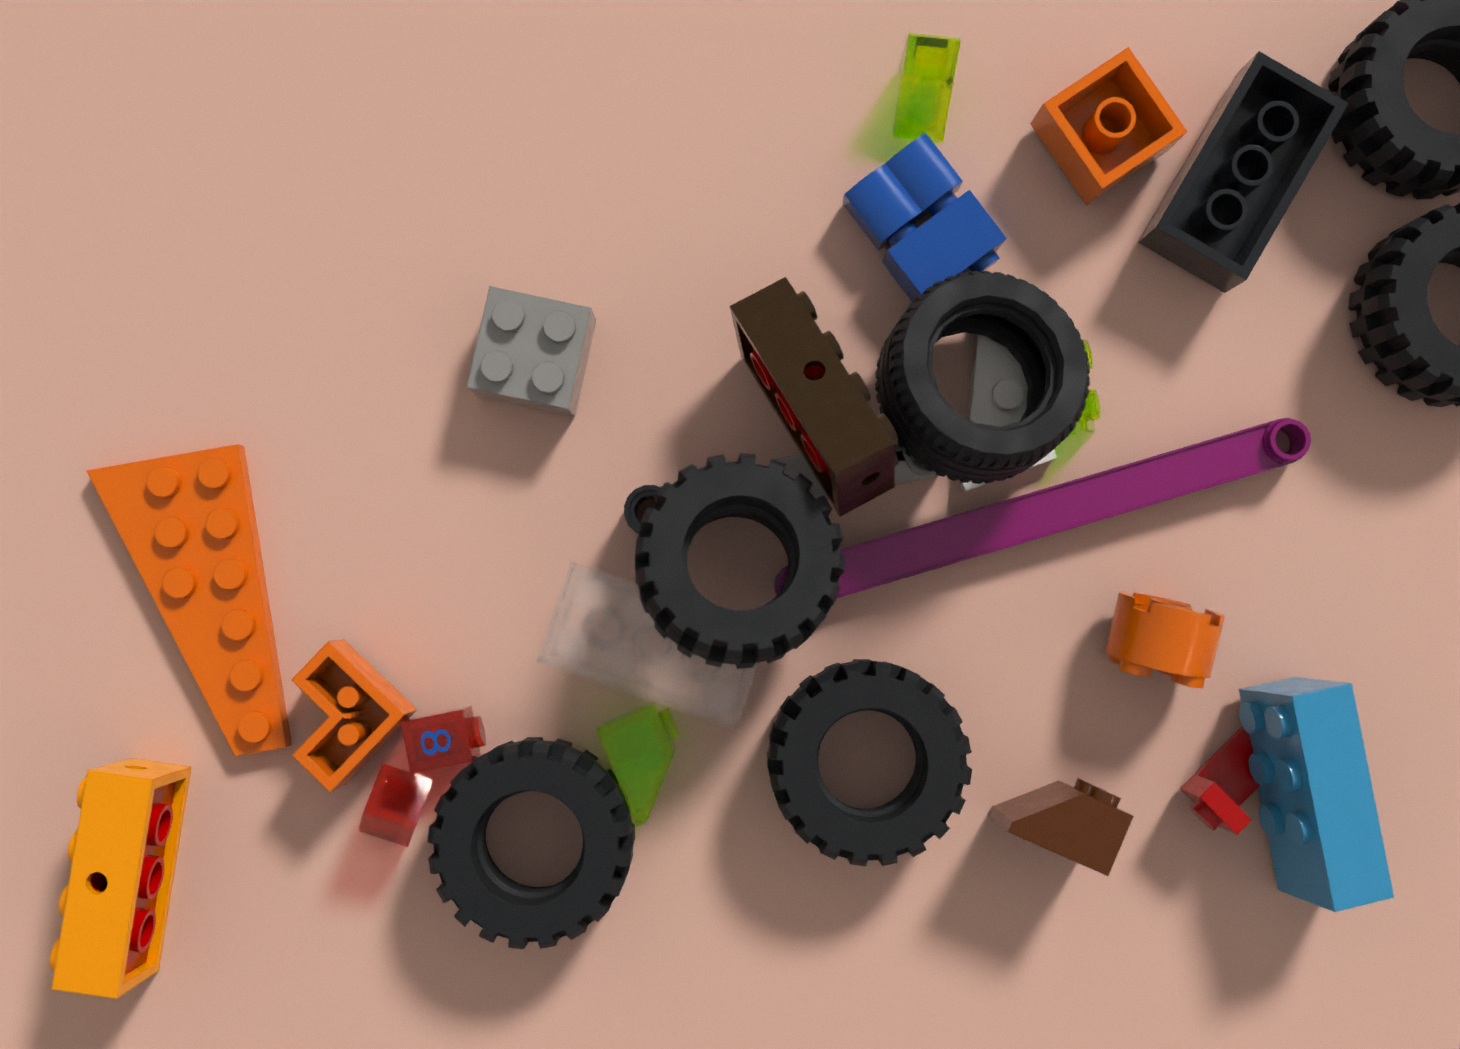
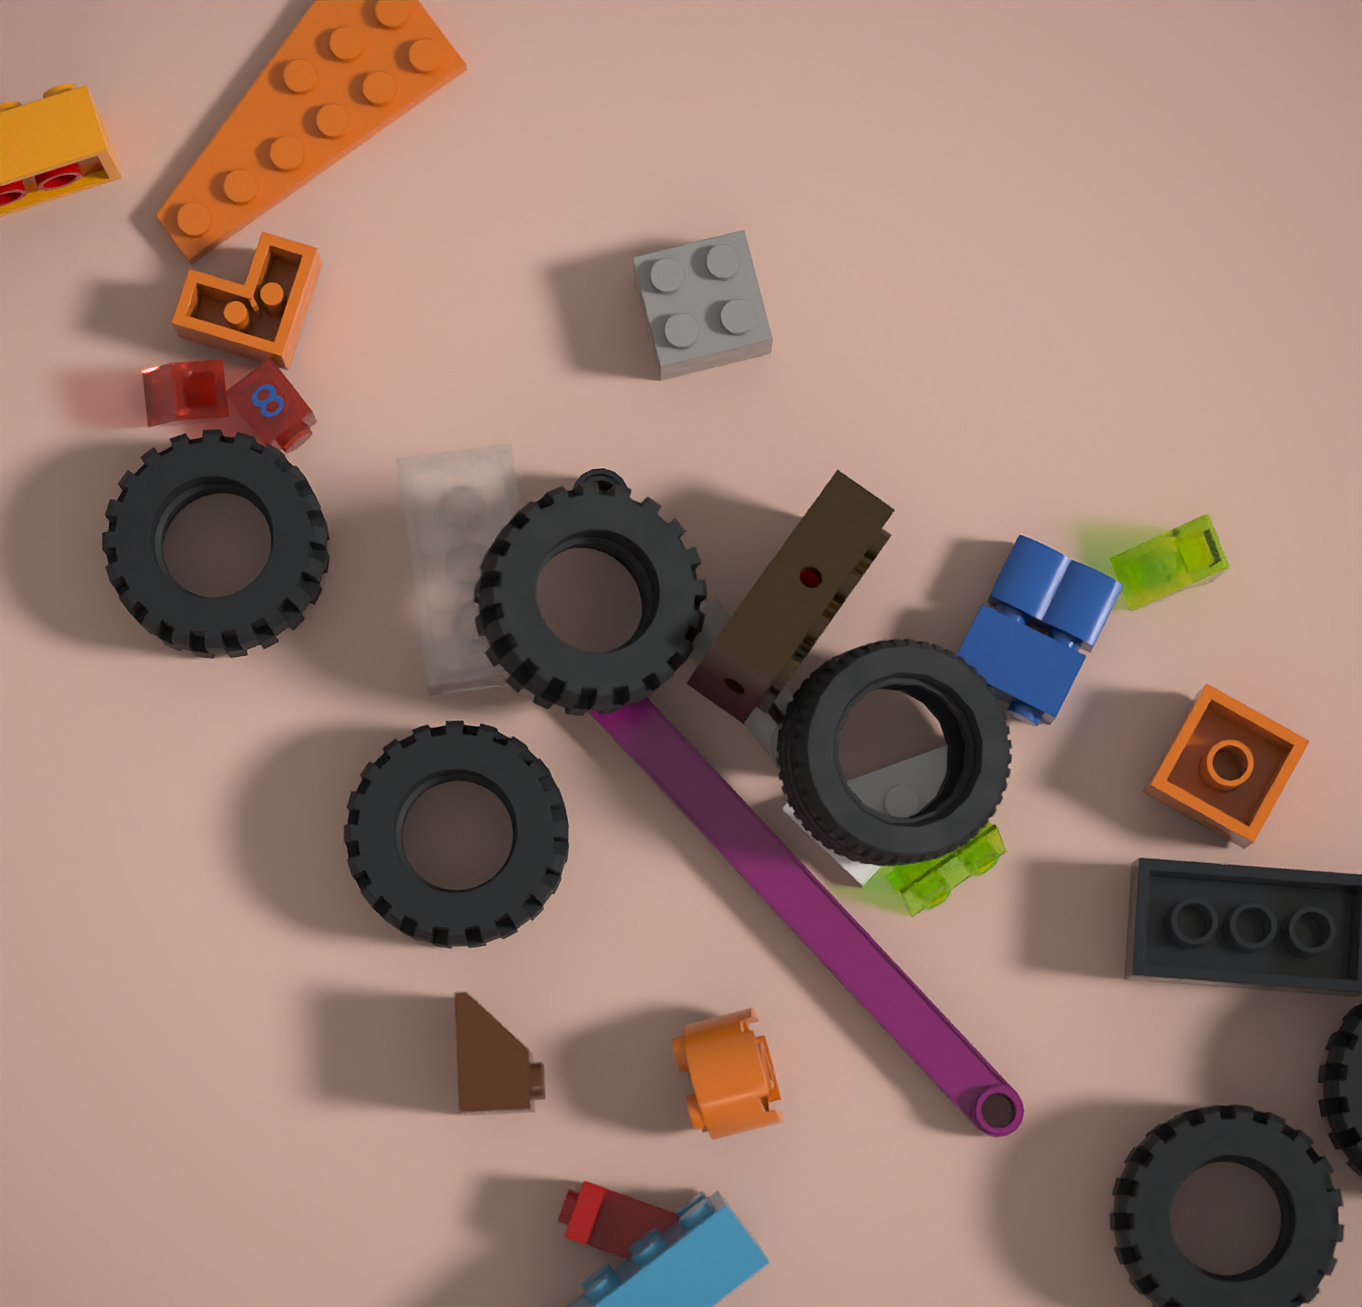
camera: 70 degrees right, 5 degrees down
(640, 754) = (351, 611): clear neon green slope -> none

